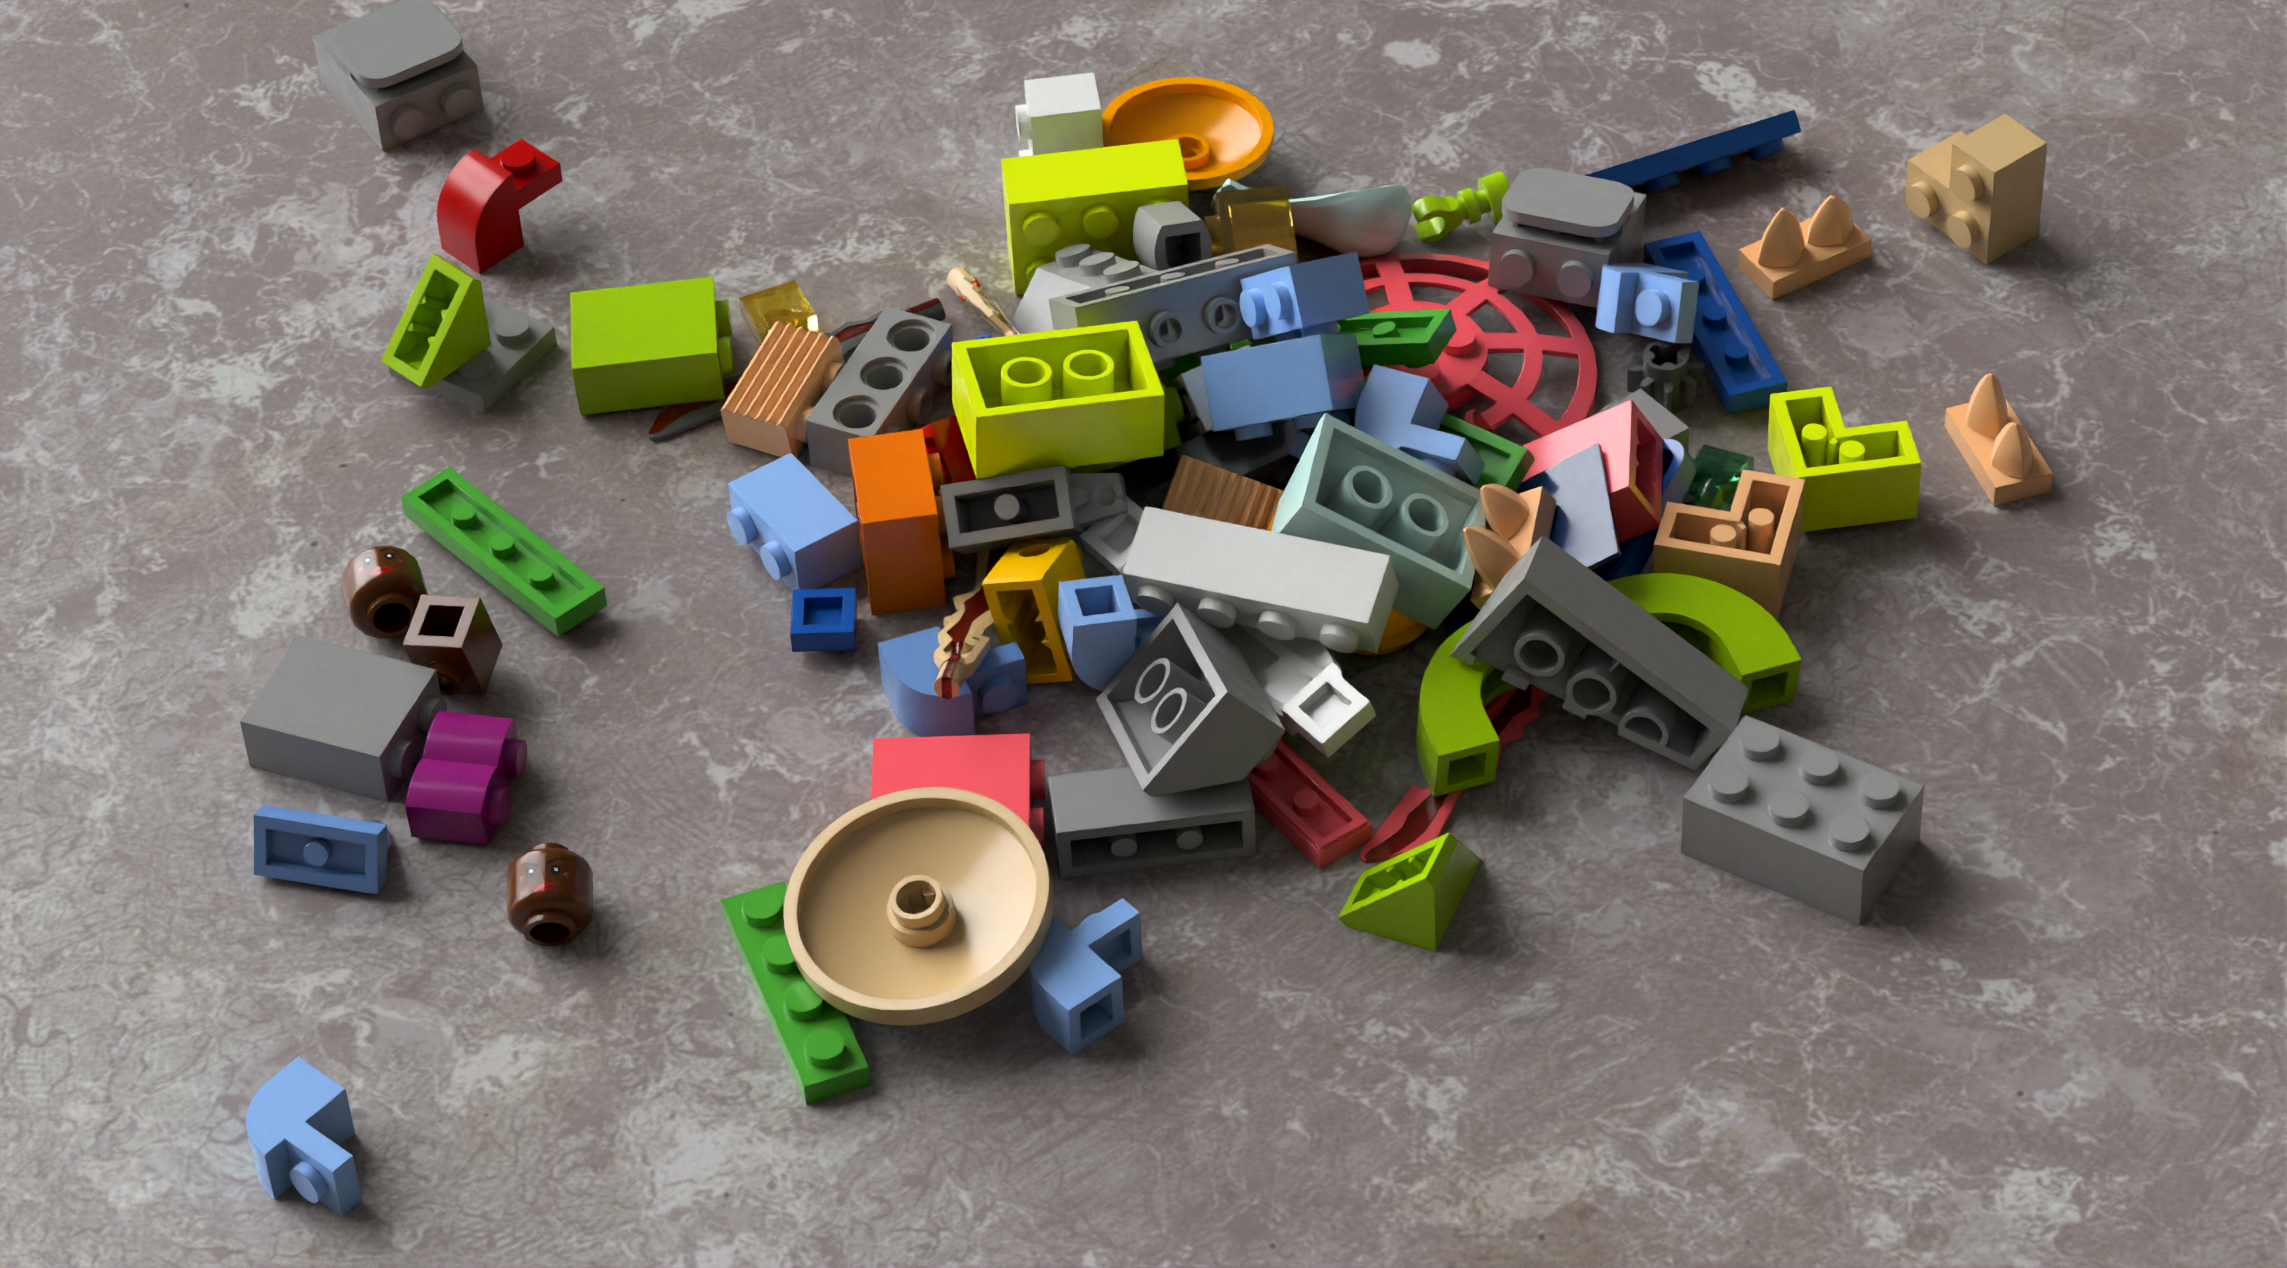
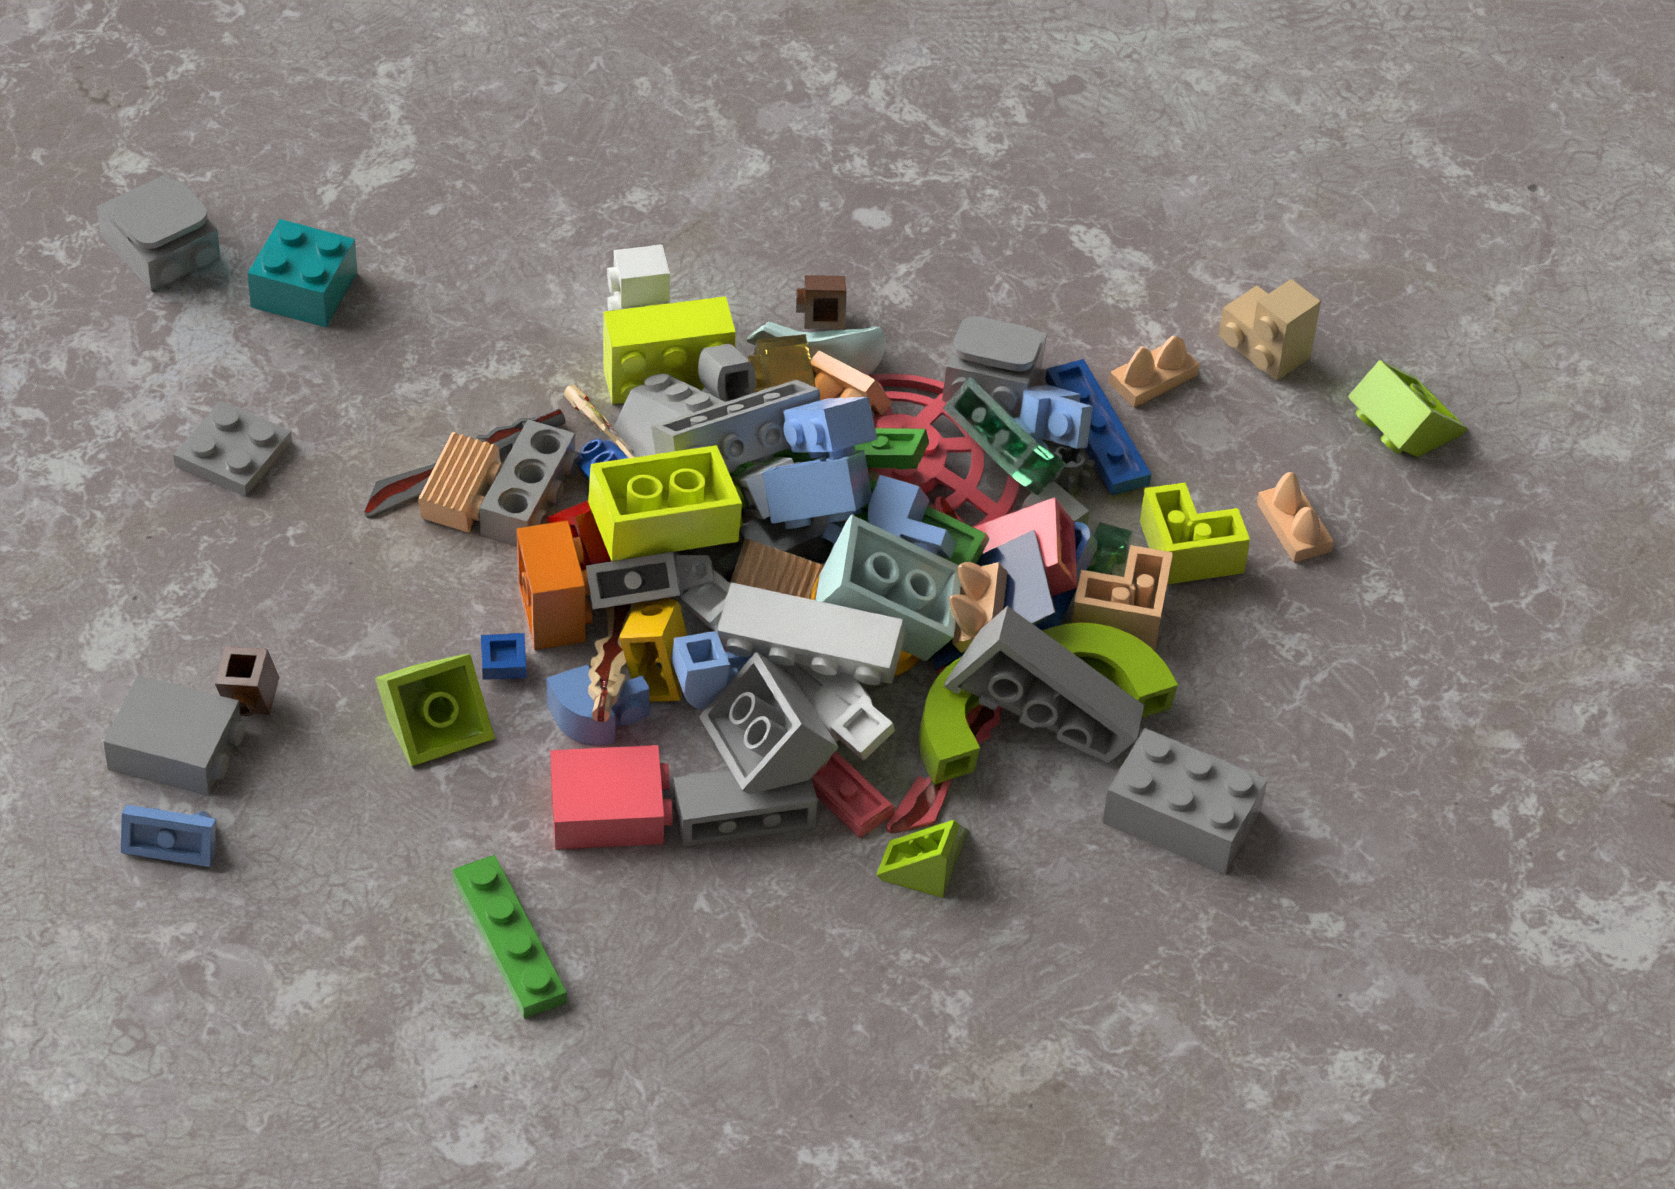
camera: 10 degrees left, 5 degrees up
(297, 1137) = (174, 1050): light blue brick -> none
(382, 591) = (193, 639): reddish brown head -> none
(440, 325) = (211, 434): lime slope -> none
(465, 778) = (264, 779): magenta brick -> none
(483, 200) = (232, 336): red brick -> none
(504, 551) = (273, 605): bright green plate -> none
(549, 894) = (333, 867): reddish brown head -> none
(596, 119) = (302, 273): none -> teal brick
(650, 345) = (361, 447): lime brick -> none
(719, 685) = (435, 708): none -> lime slope
(777, 303) = (448, 418): clear yellow plate -> none
(794, 524) = (476, 584): light blue brick -> none
(918, 906) = (594, 876): tan dish -> none
(1078, 977) = (701, 922): light blue brick -> none
(1218, 126) = (730, 269): light orange dish -> none
(1325, 156) = (822, 302): none -> reddish brown brick
(1377, 266) = (838, 378): none -> light nougat tile
(1449, 212) = (905, 344): lime piece -> none
(1568, 324) = (1004, 436): none -> clear green brick
(1707, 154) = (1083, 299): blue plate -> none
(2170, 300) = (1404, 411): none -> lime slope

